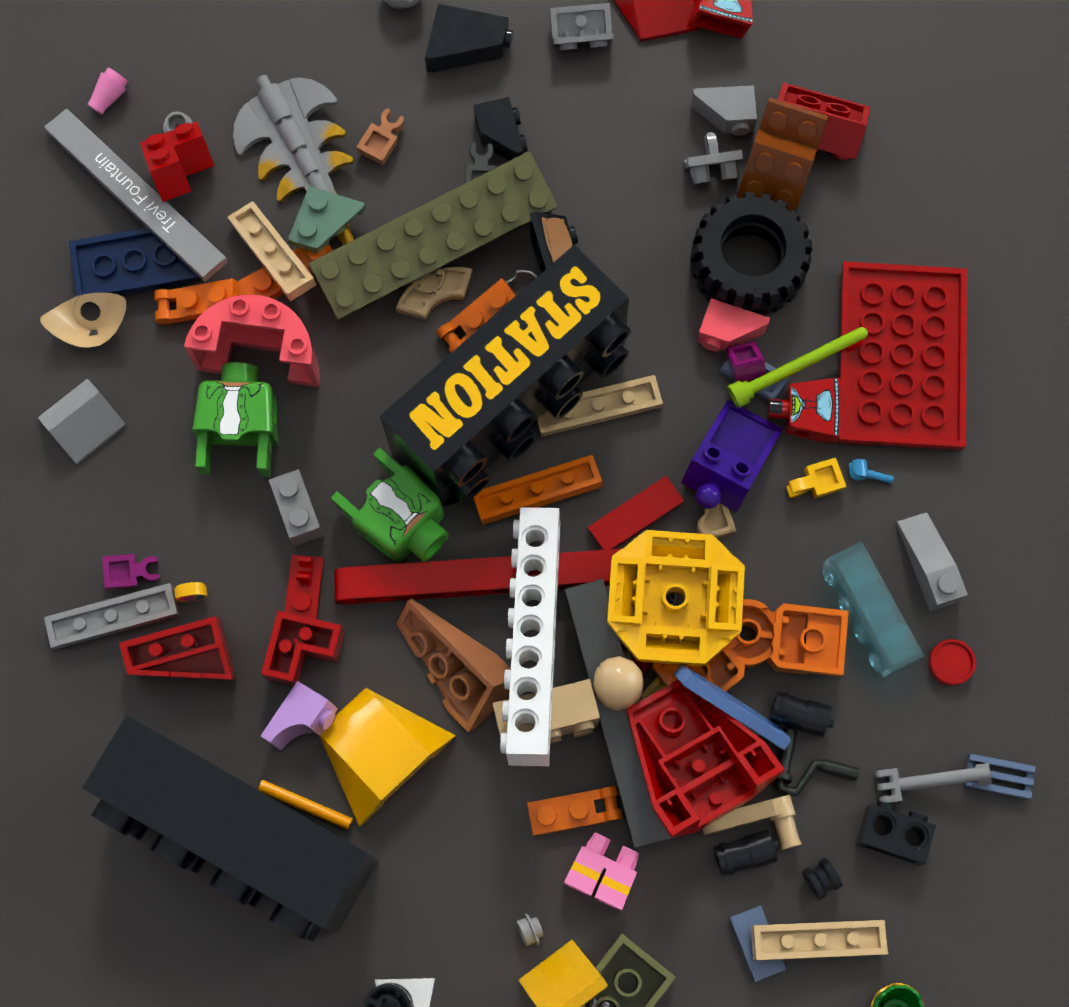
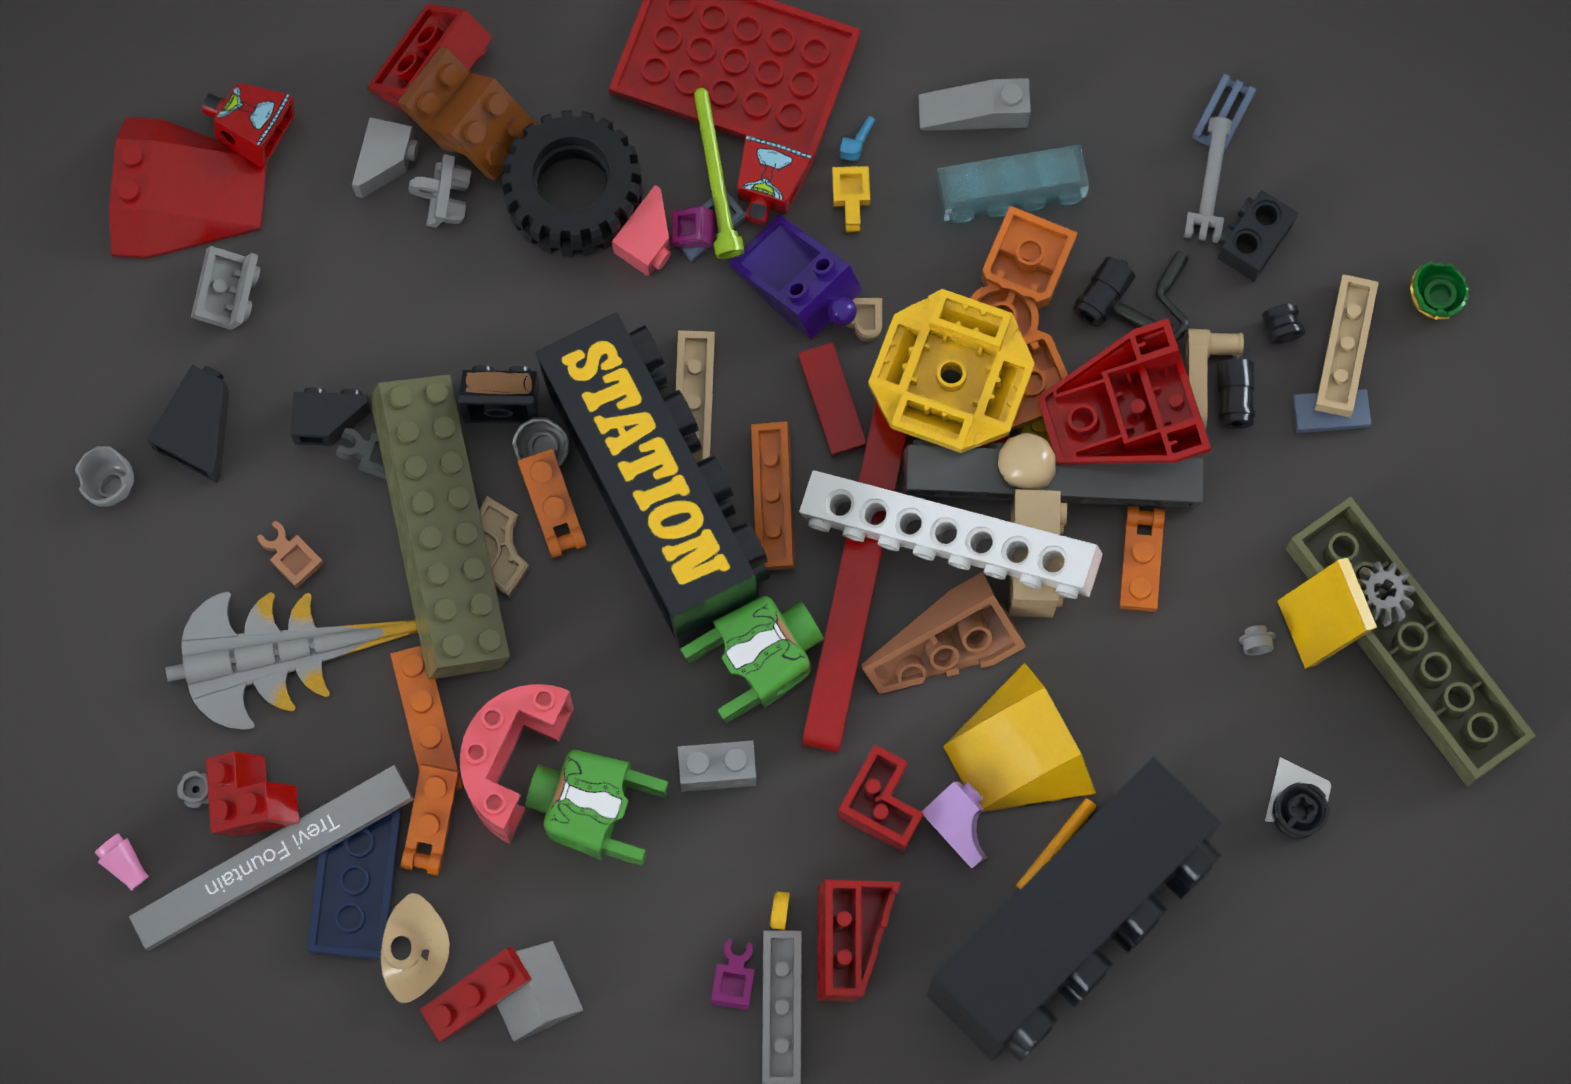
camera: 75 degrees left, 0 degrees up
(62, 374) = (476, 994): none -> red plate
(271, 251) = (398, 713): tan plate -> none
(304, 586) = (809, 784): red plate -> none
(322, 218) = (375, 646): sand green wing -> none
(617, 878) = (1221, 549): bright pink hips -> none
(732, 706) = (1082, 354): medium blue tile -> none
(952, 662) = (1090, 121): red piece -> none

